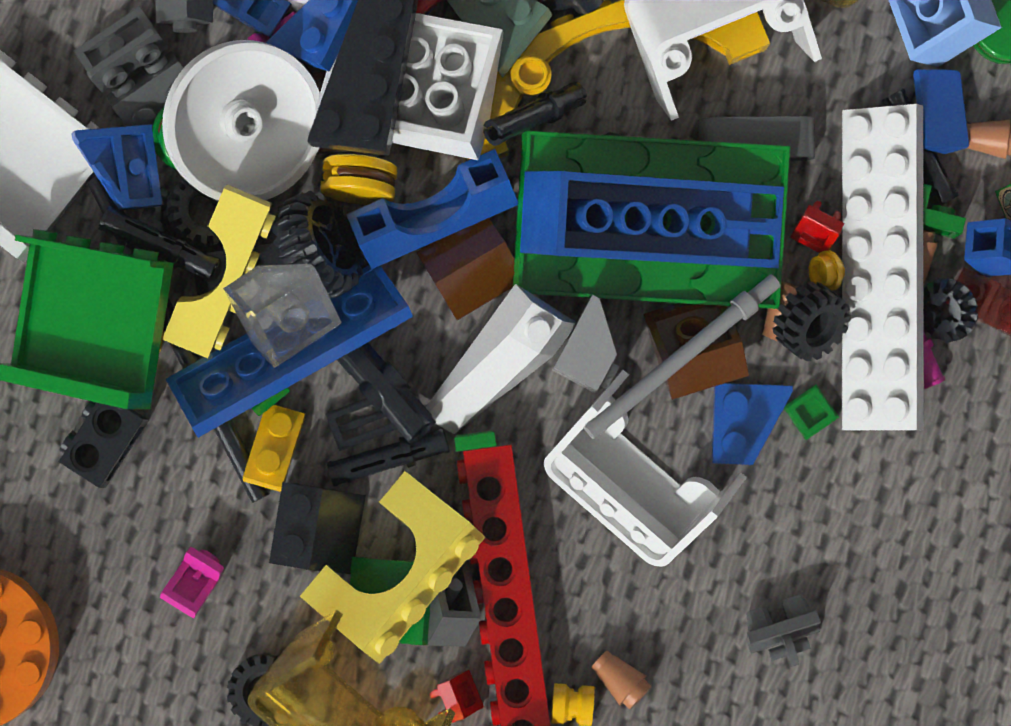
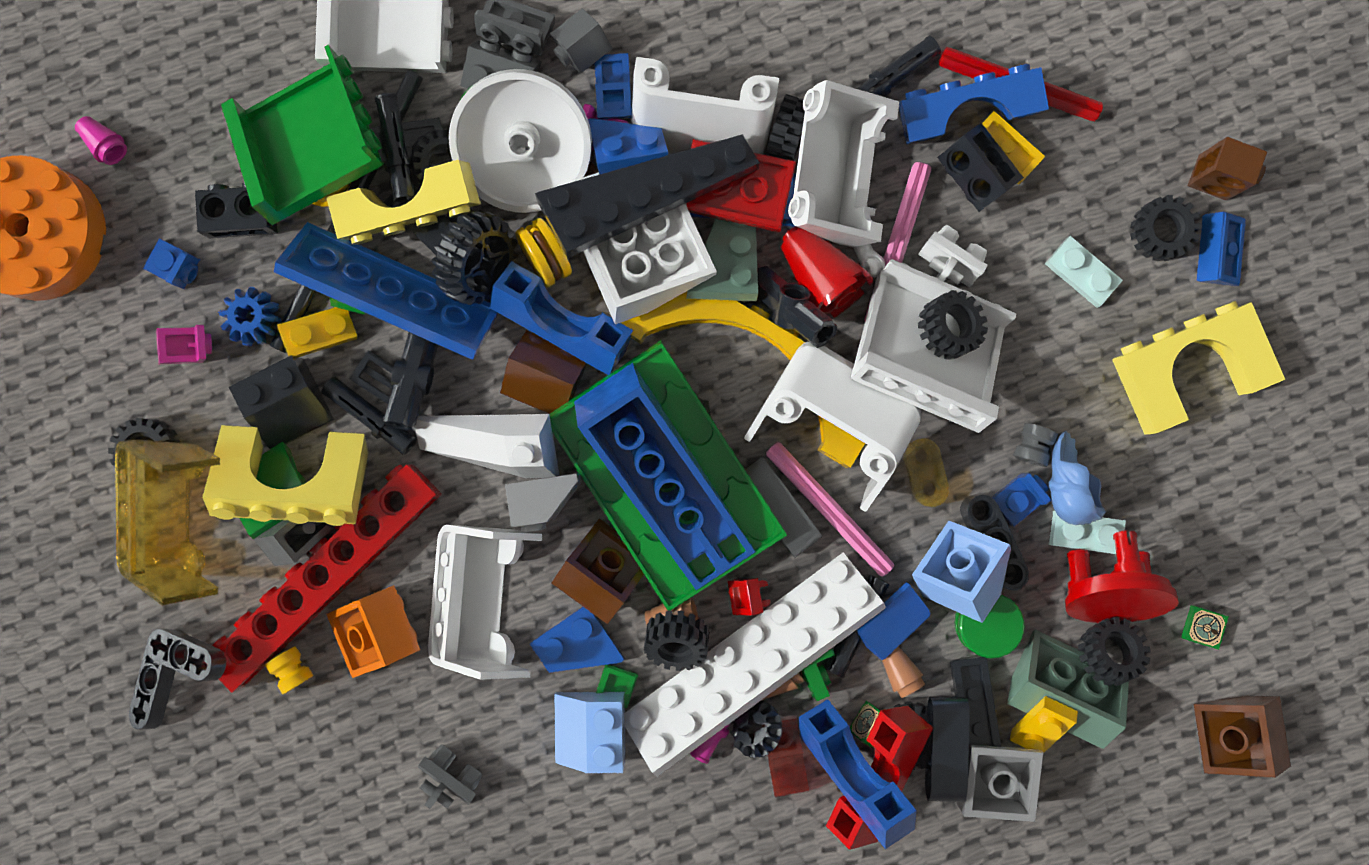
camera: 50 degrees right, 0 degrees up
(106, 538) = (172, 264): none -> blue bracket
(123, 163) = (433, 82): blue wing -> none
(224, 507) = (238, 323): none -> blue gear
(282, 308) = (405, 263): clear slope -> none
(459, 694) = (237, 587): red tile -> none
(475, 441) = (423, 467): green tile -> none
(531, 74) = (703, 317): yellow plate -> none
(547, 108) = (689, 345): black pin -> none
(594, 600) = (373, 631): none -> orange slope
(621, 679) = (331, 691): nougat cone -> none
(741, 307) = (648, 585): light grey bar -> none
(793, 93) = (830, 509): none -> bright pink axle
(827, 269) = (722, 624): yellow plate -> none
(835, 465) = (590, 731): none -> light blue slope

